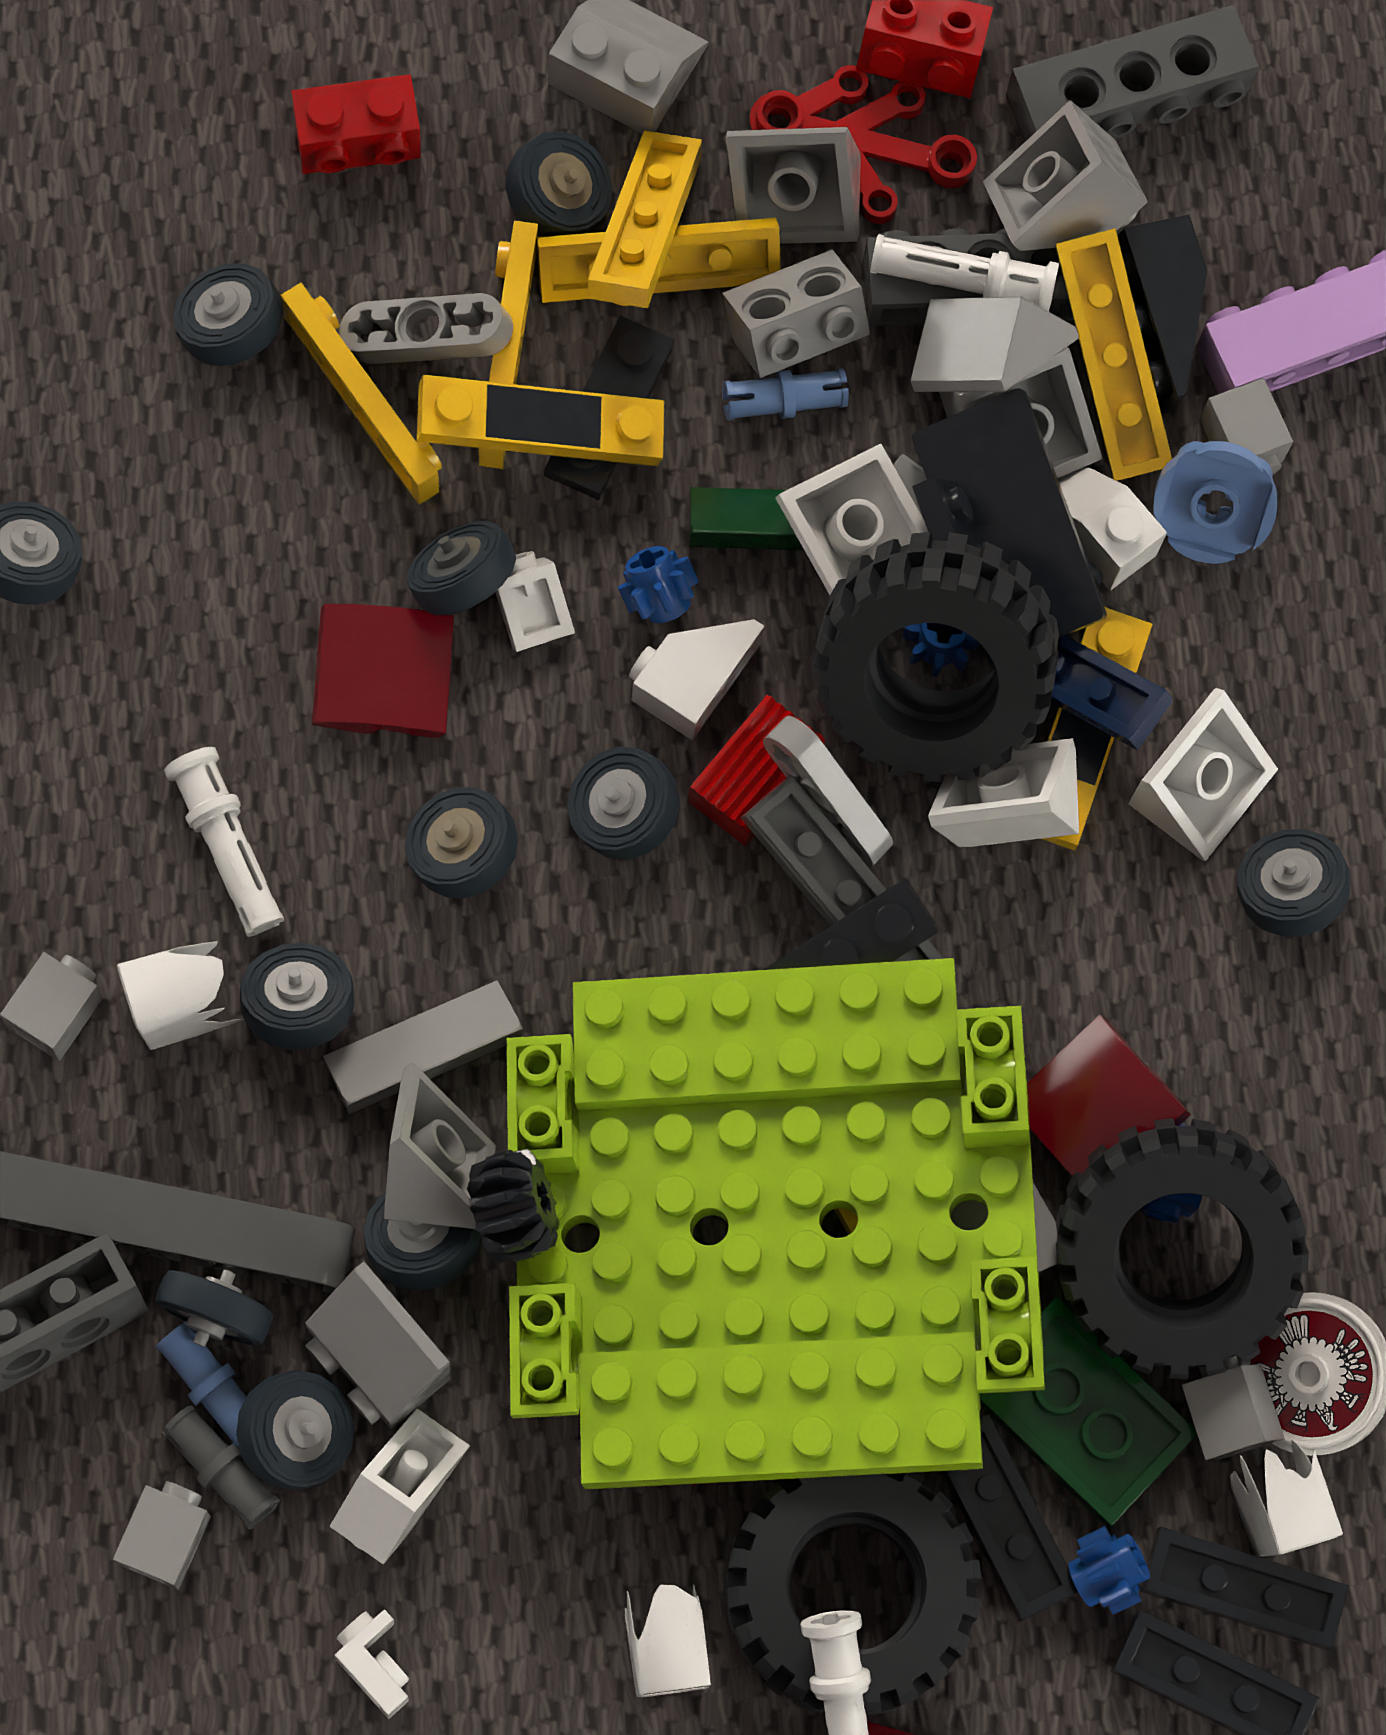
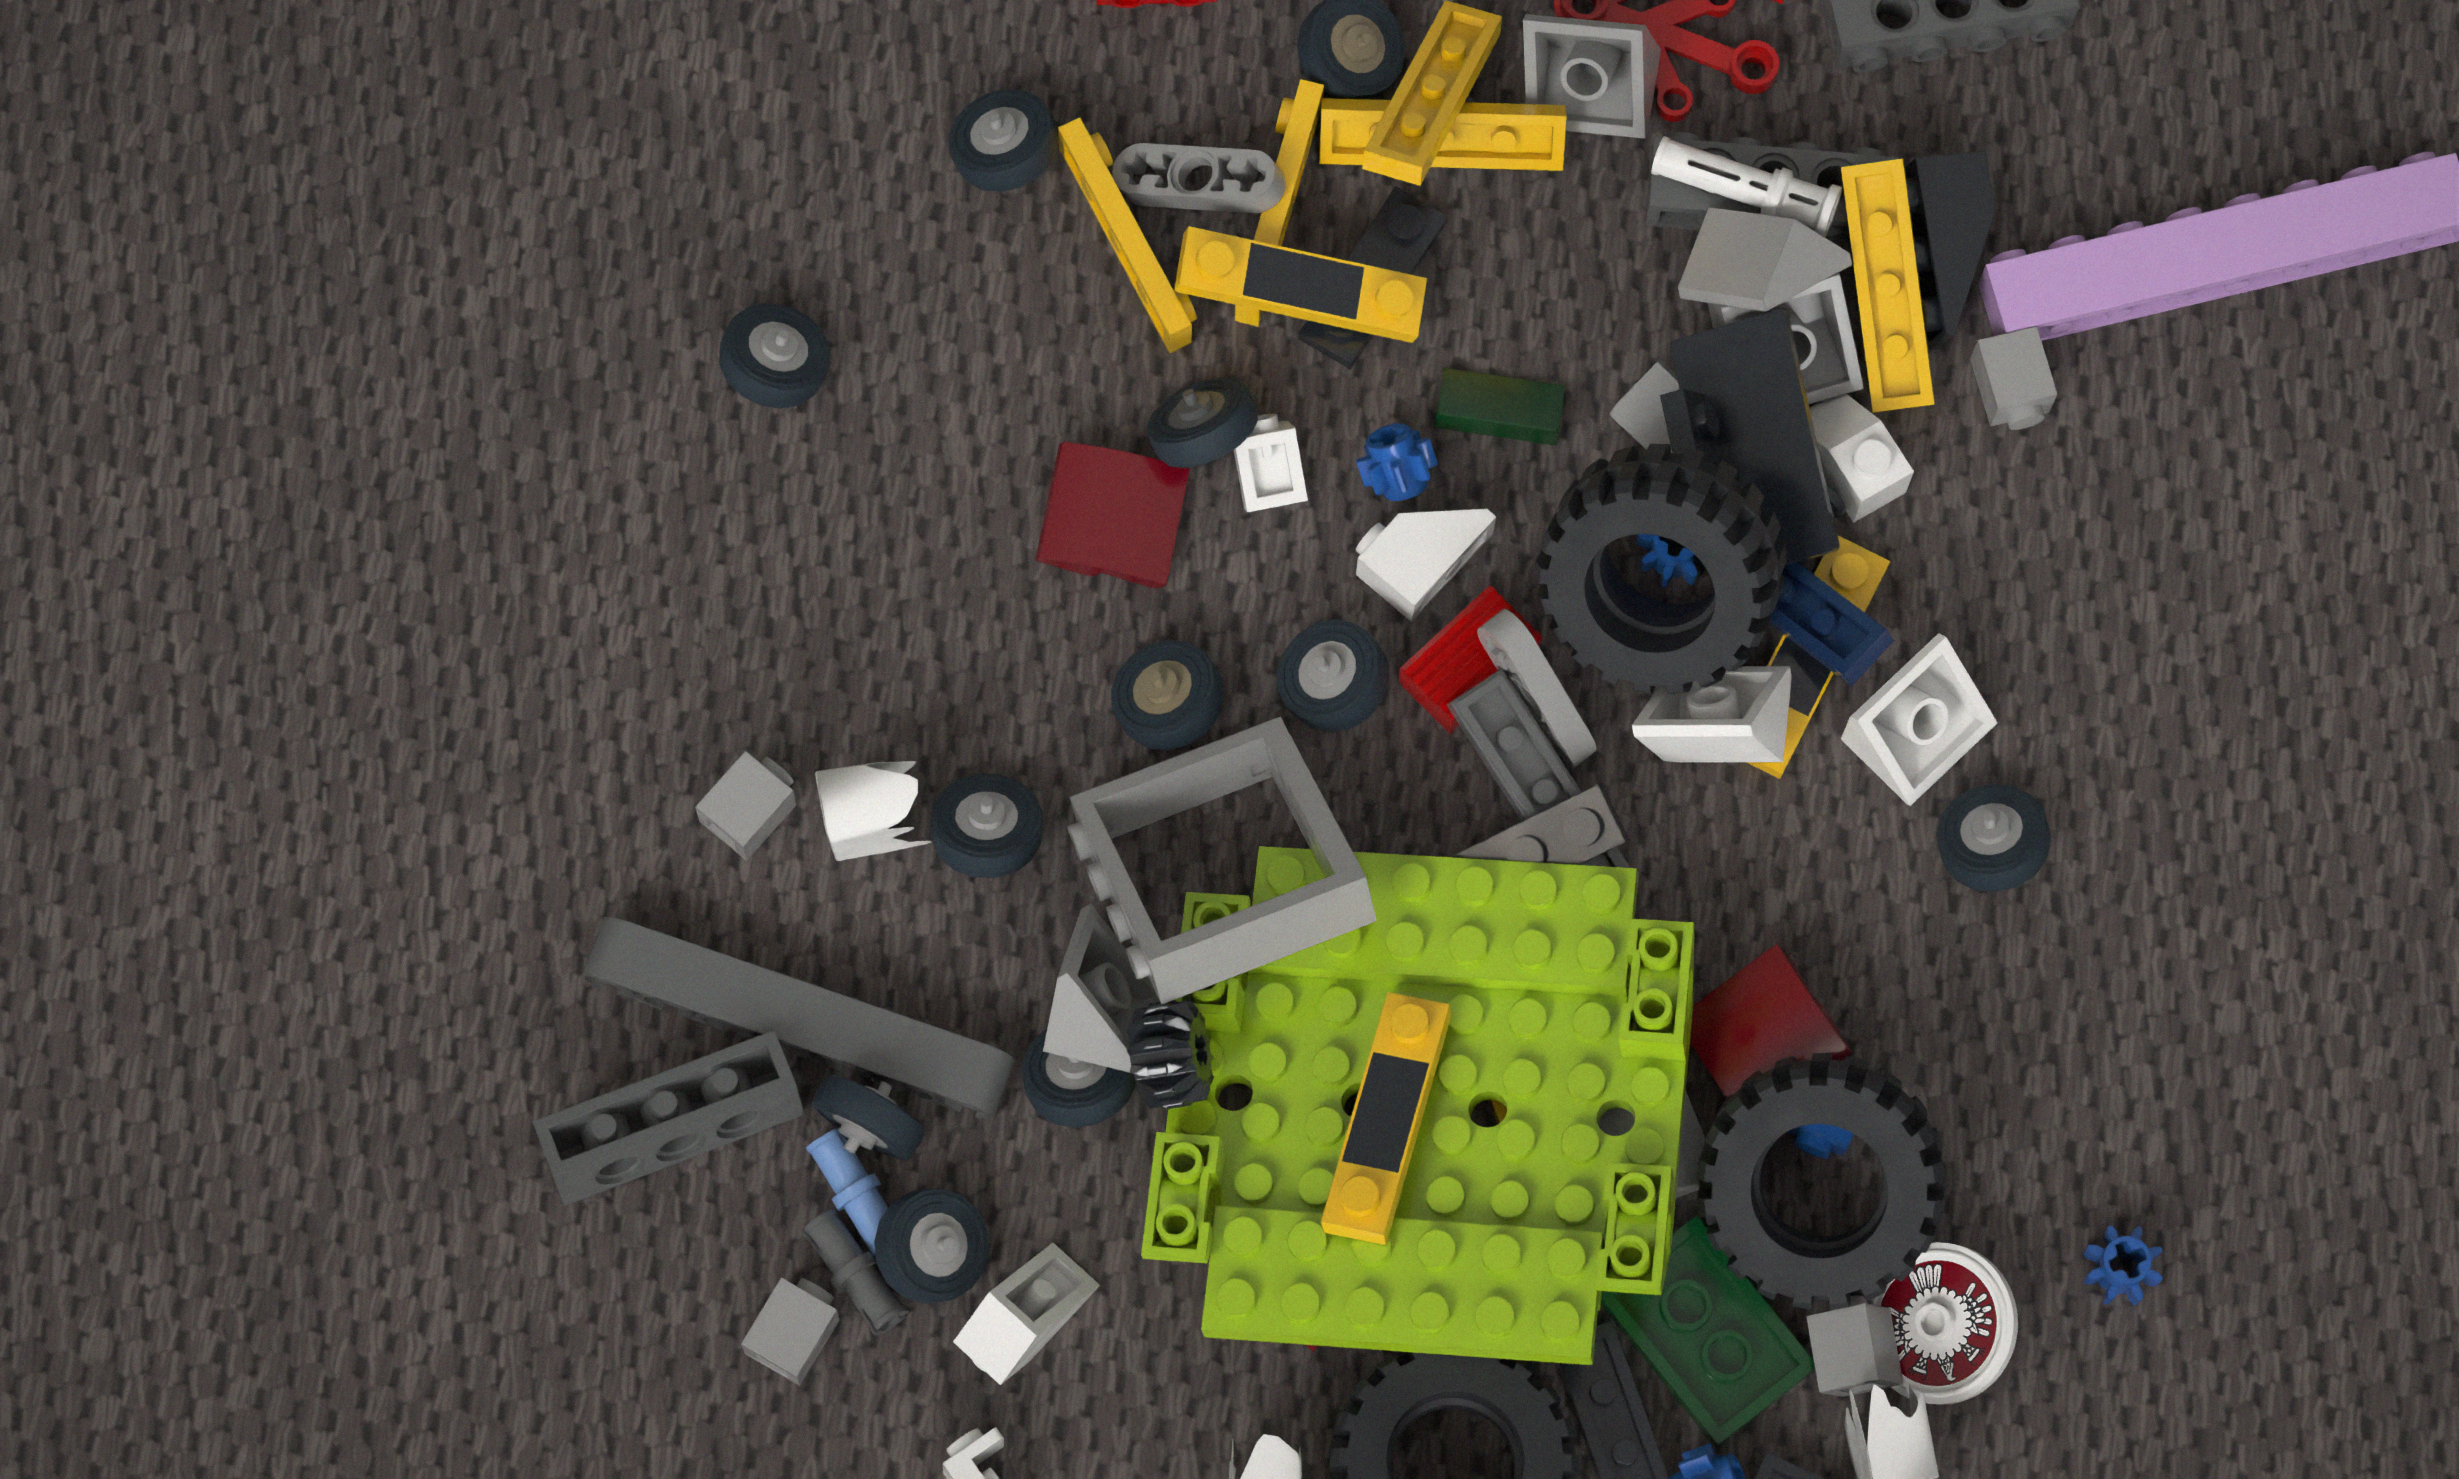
camera: 15 degrees right, 0 degrees up
(215, 816) = (929, 638): white pin -> none
(376, 1348) = (1020, 1177): light grey slope -> none
(431, 1040) = (1051, 904): light grey slope -> none
(577, 1077) = (1250, 935): none -> light grey window
(740, 1244) = (1386, 1118): none -> yellow plate
(785, 394) = (1551, 285): medium blue pin -> none
(796, 313) = (1572, 205): light grey brick -> none
(850, 513) = (1596, 413): white slope -> none
(1064, 184) = (1862, 105): light grey slope -> none
(1223, 468) = (1975, 412): medium blue plate -> none

